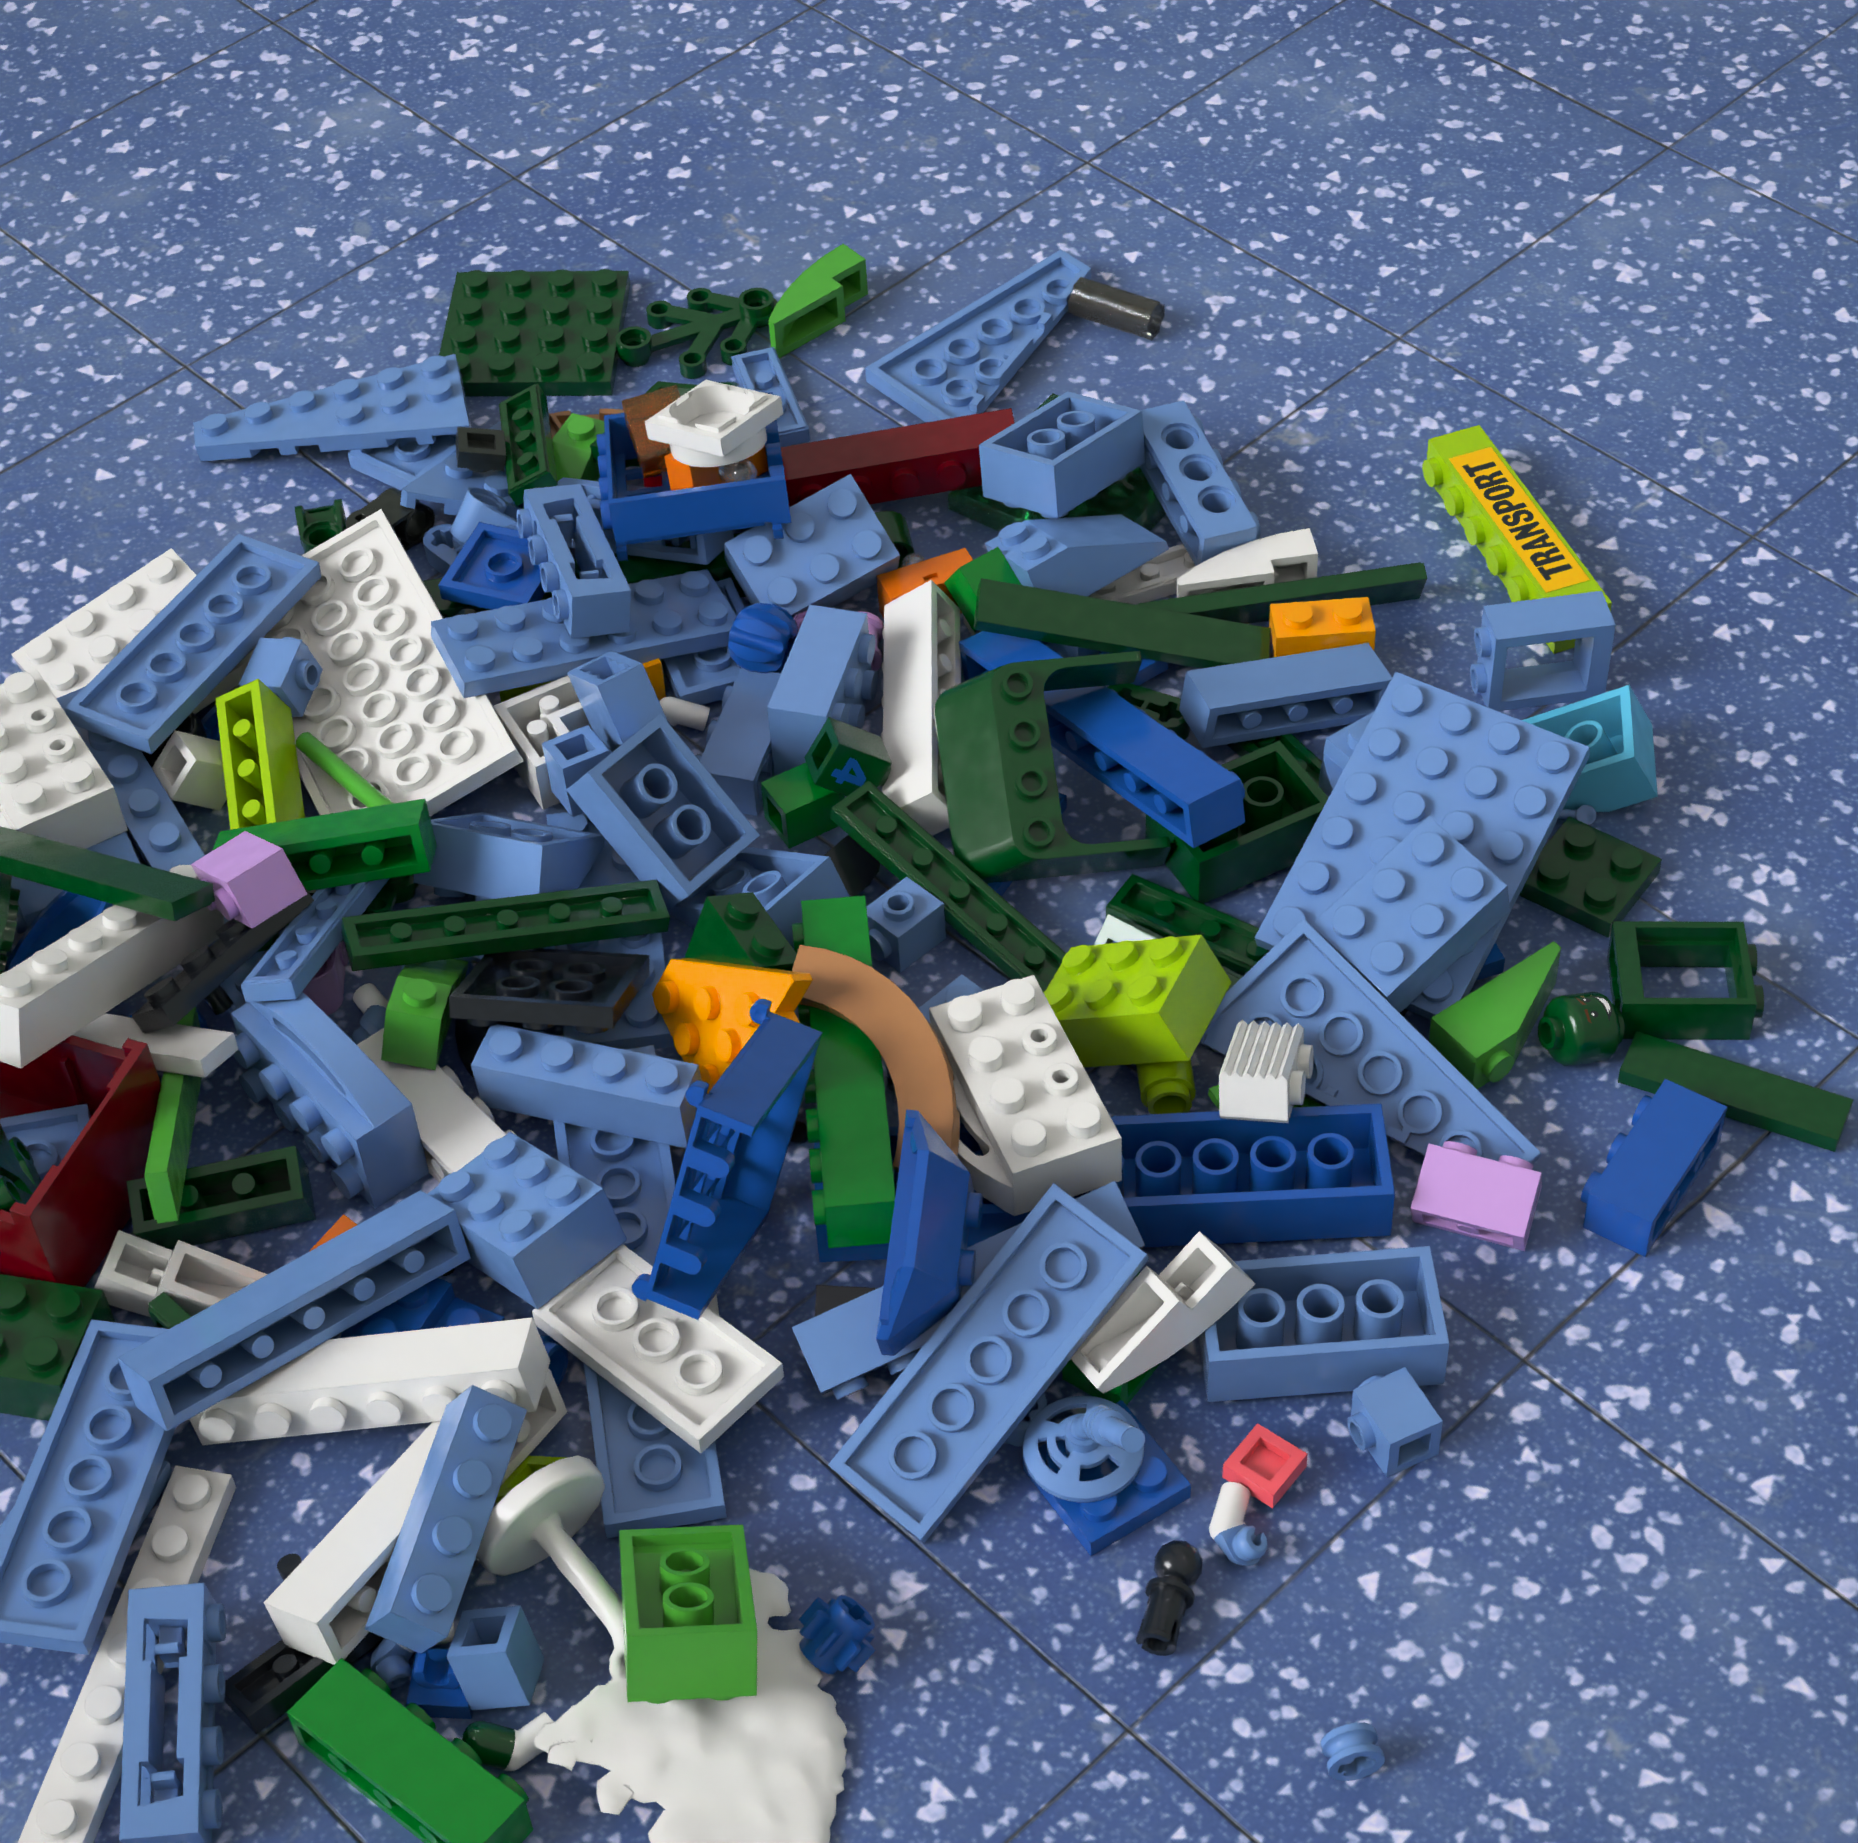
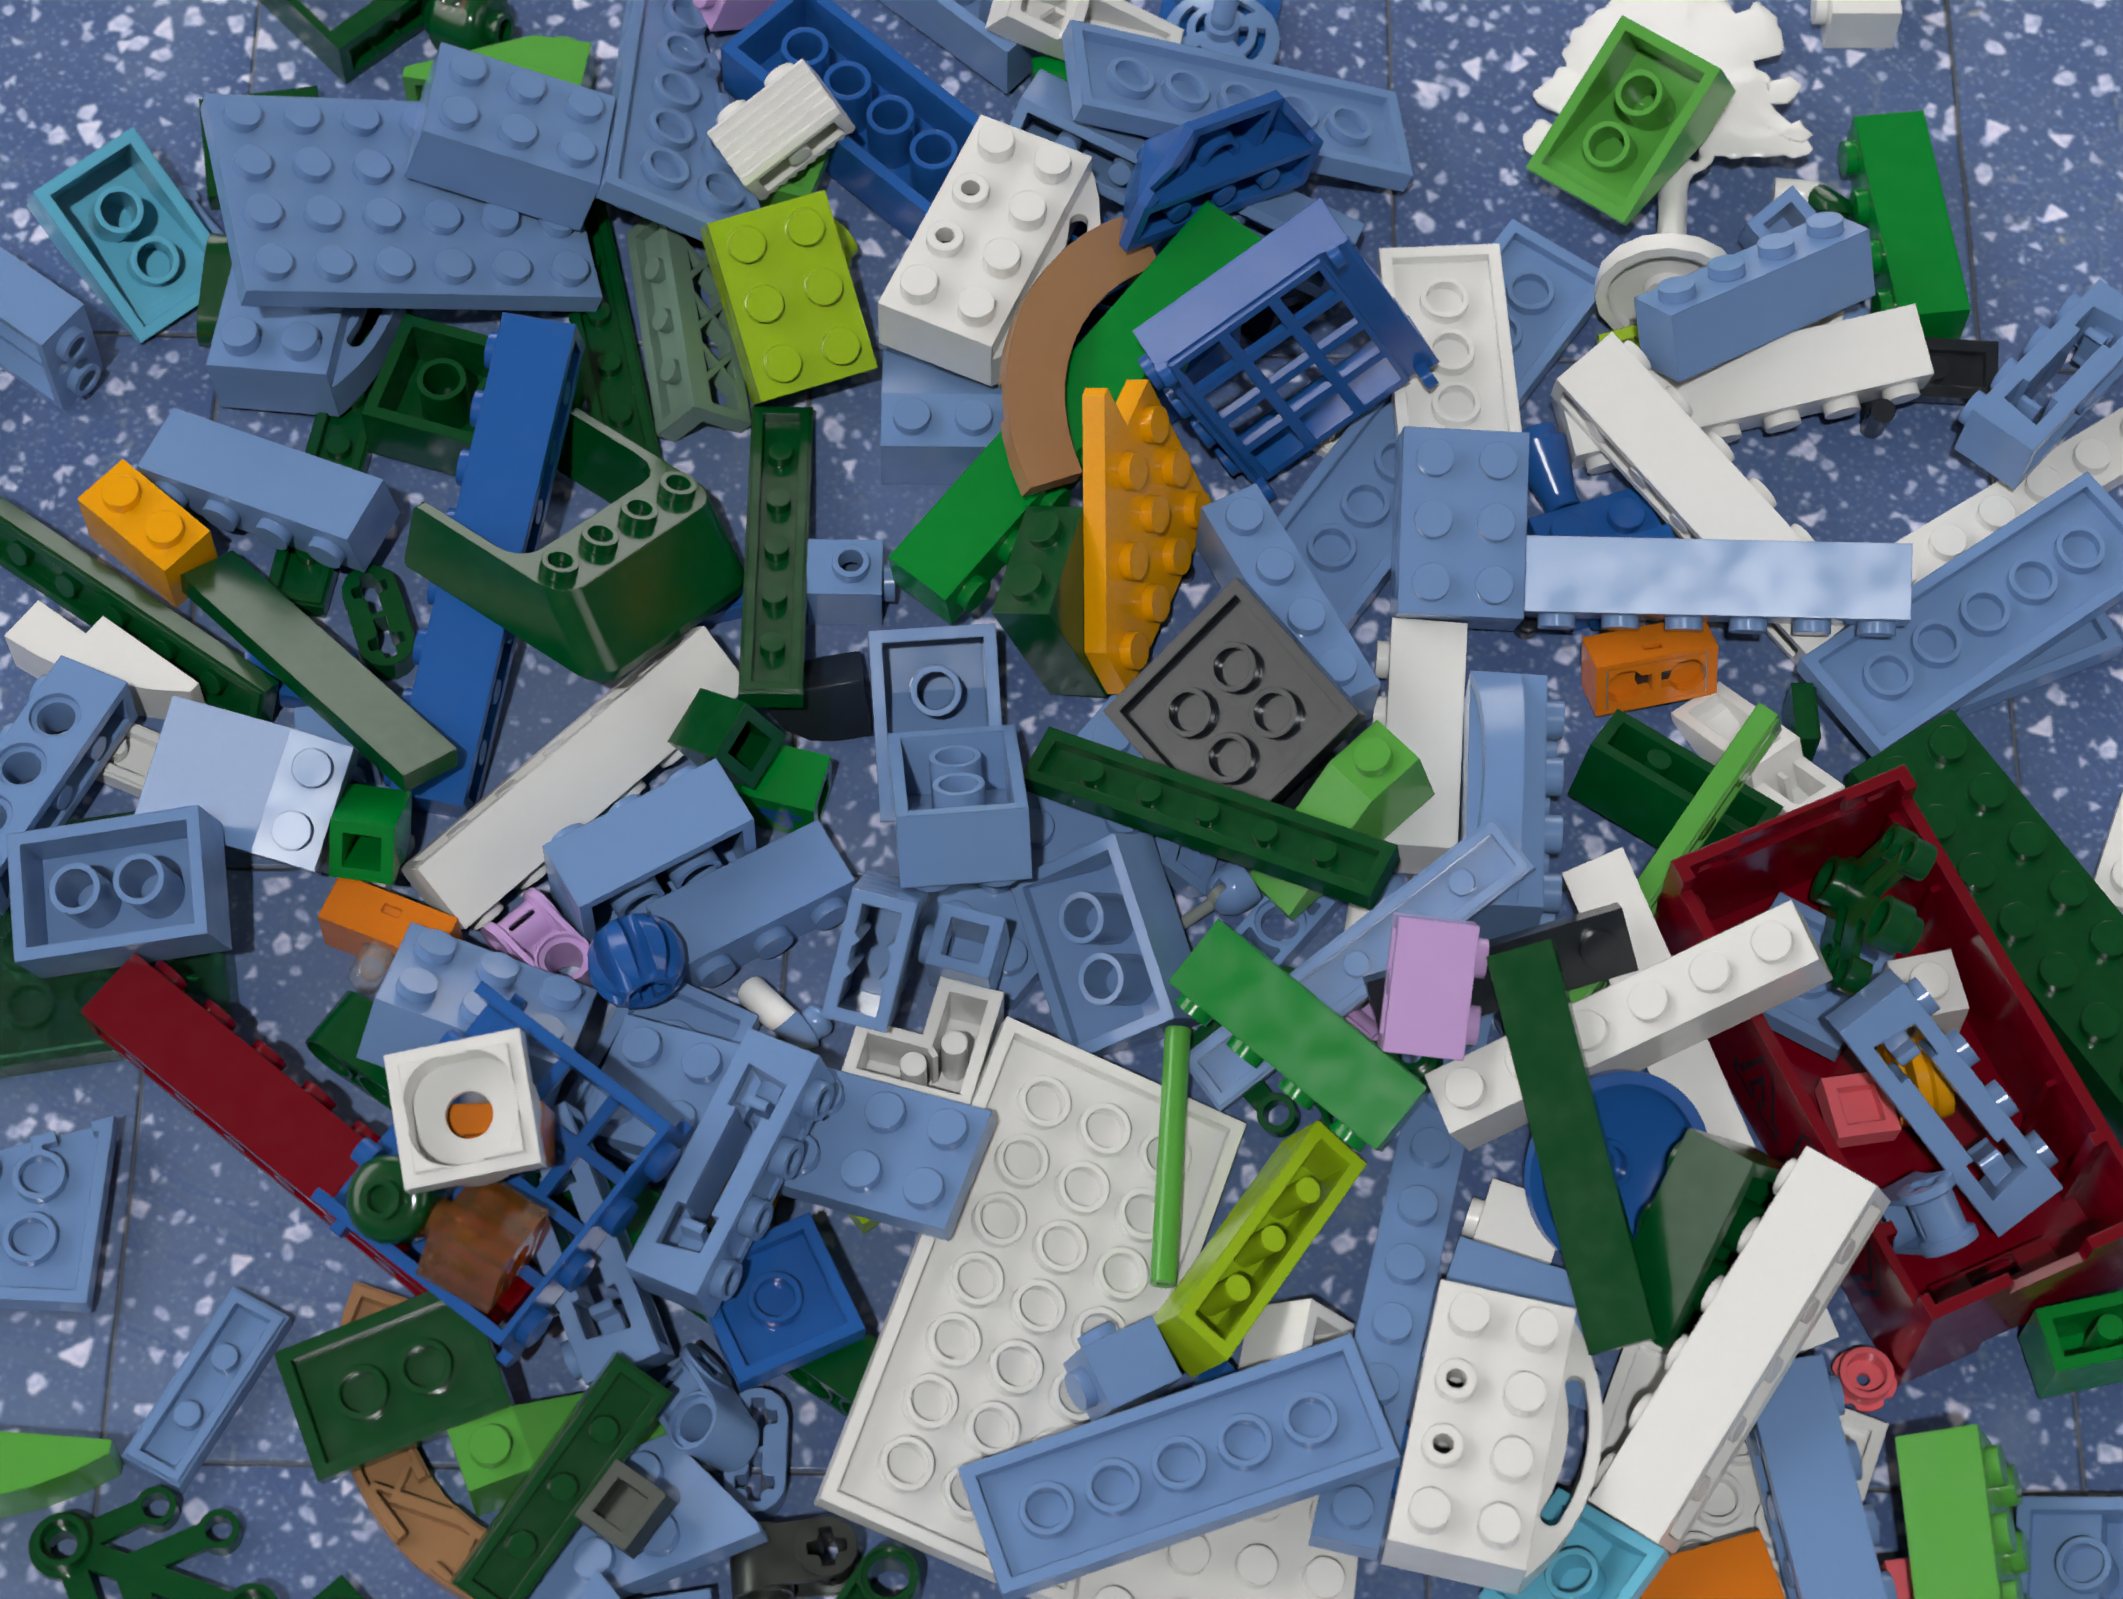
camera: 140 degrees left, 15 degrees up
(837, 1634) = (1526, 66): blue gear -> none

